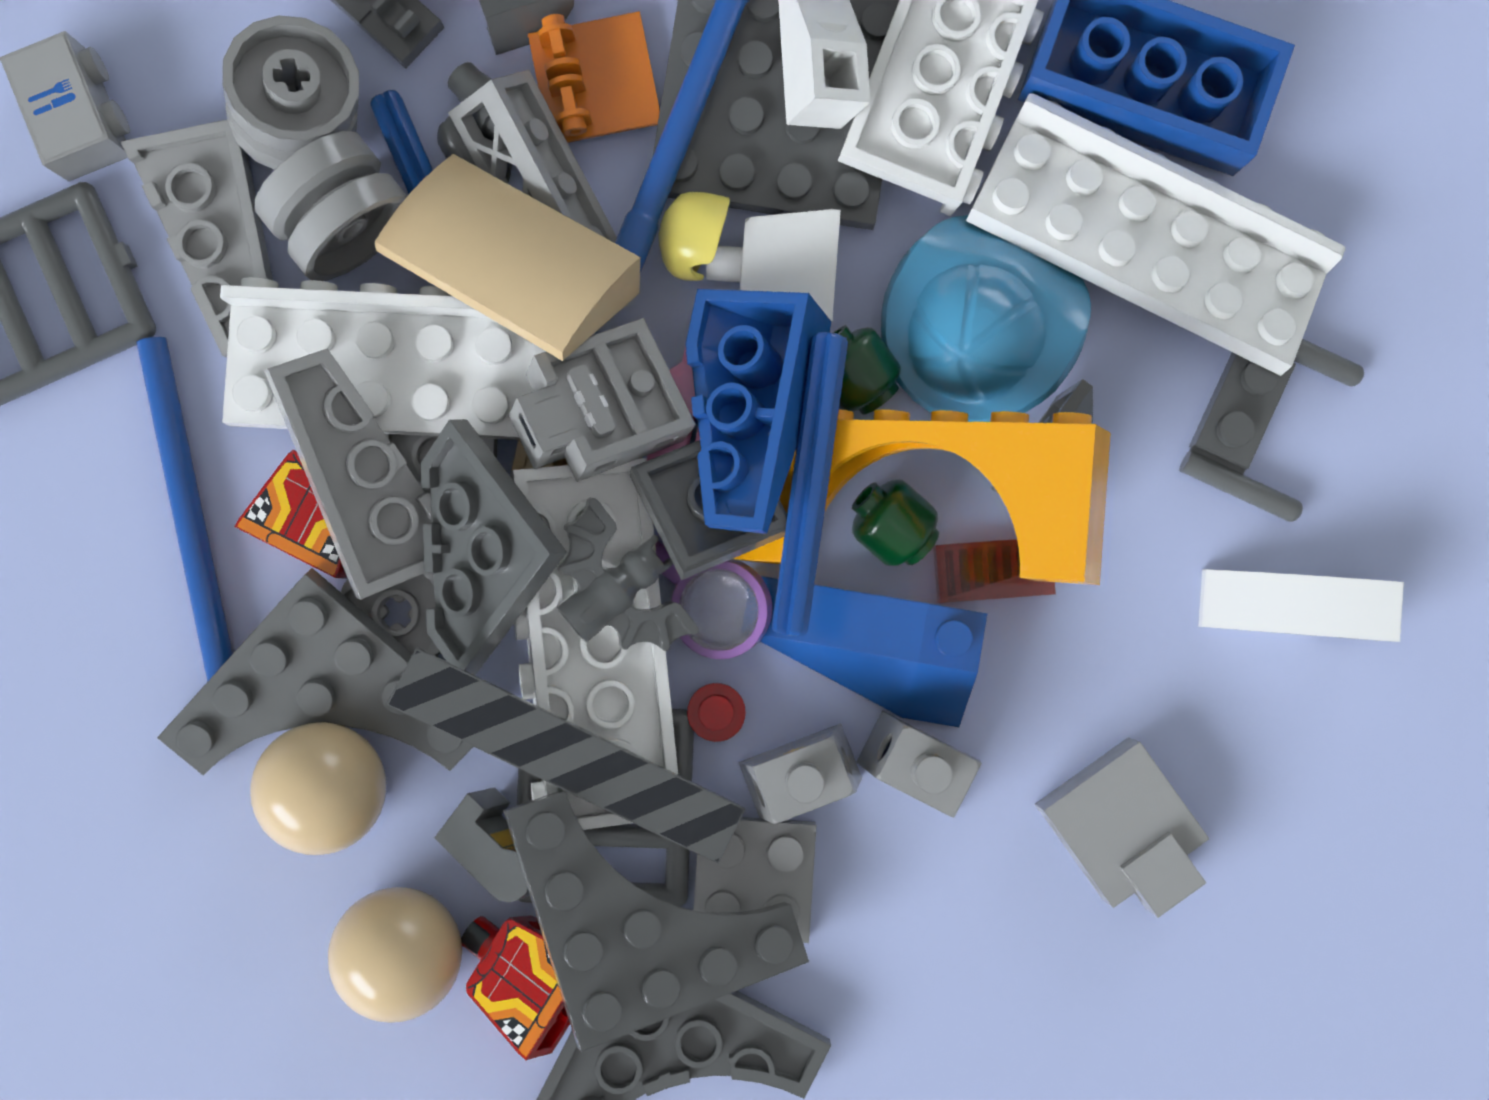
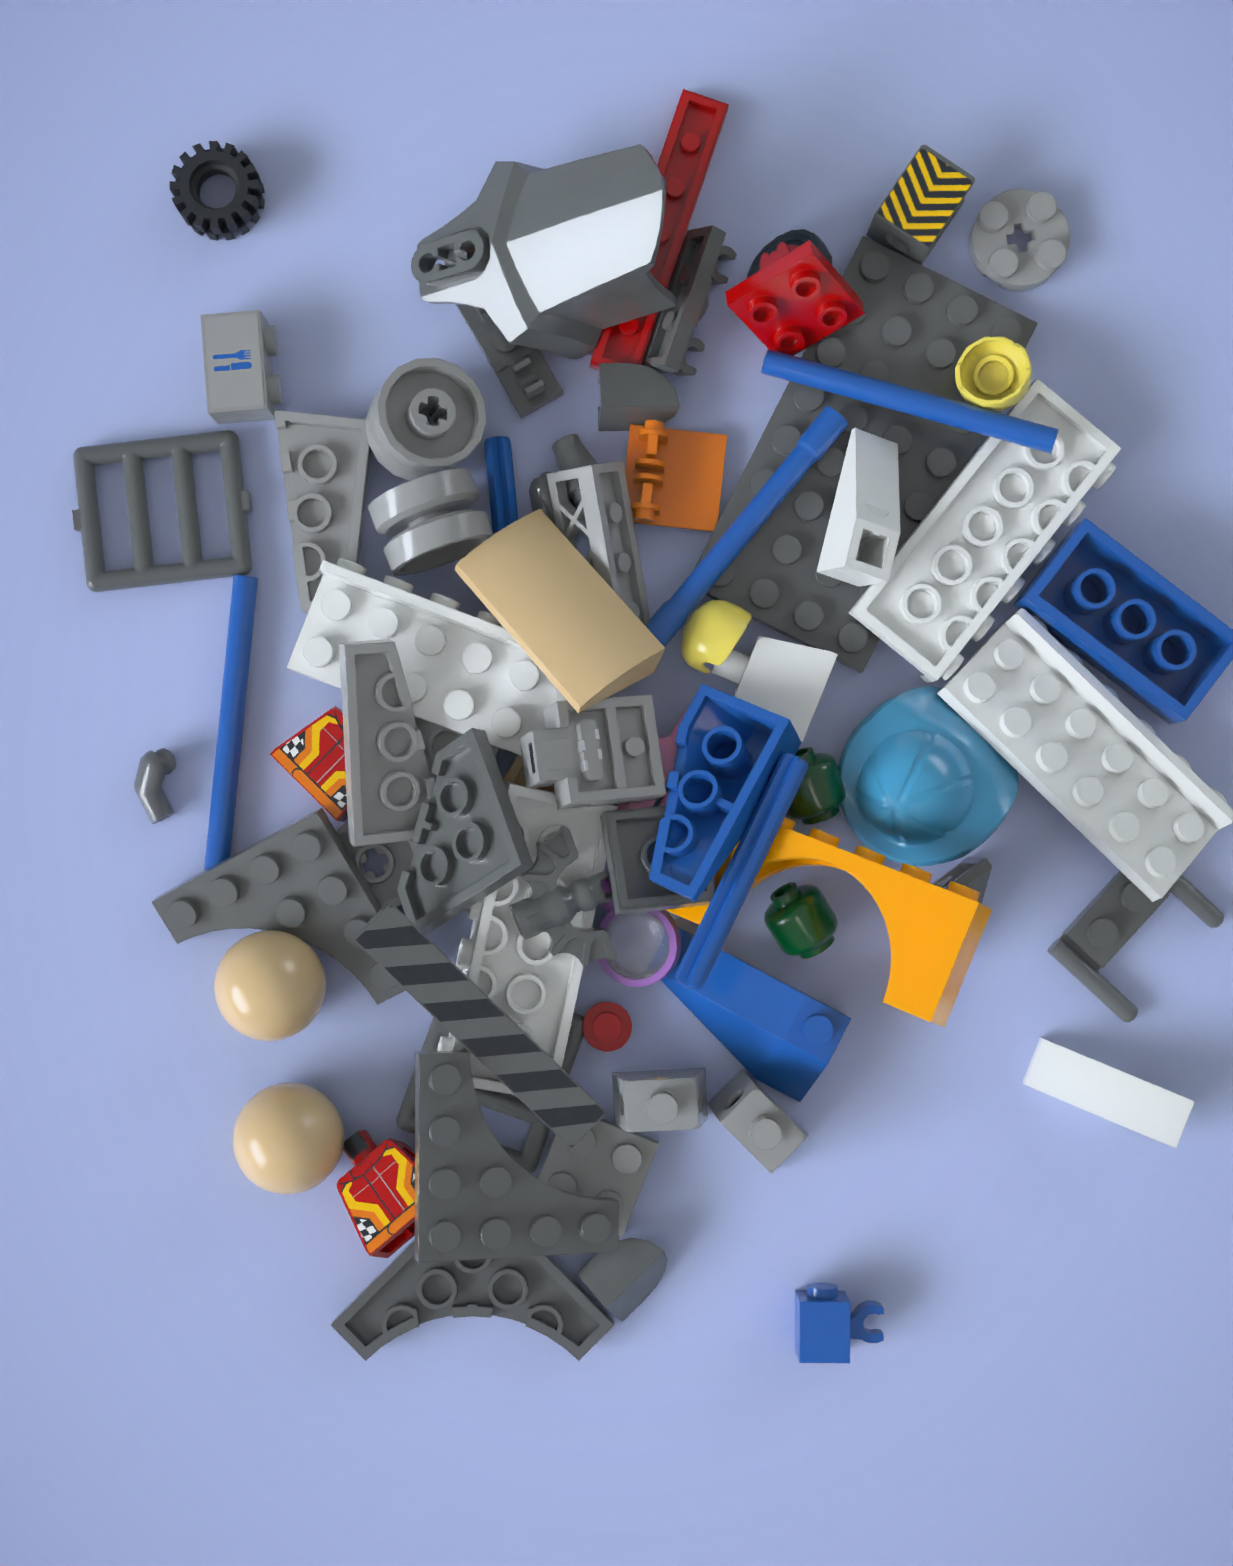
camera: 20 degrees right, 0 degrees up
(115, 606) = (149, 781): none -> dark grey arm
(483, 844) = (389, 1074): dark grey leg -> none
(826, 987) = (625, 1277): none -> dark grey brick
(983, 572) = (856, 981): clear red tile -> none
(1071, 967) = (827, 1325): none -> blue brick
(1127, 829) = (909, 1228): light grey piece -> none

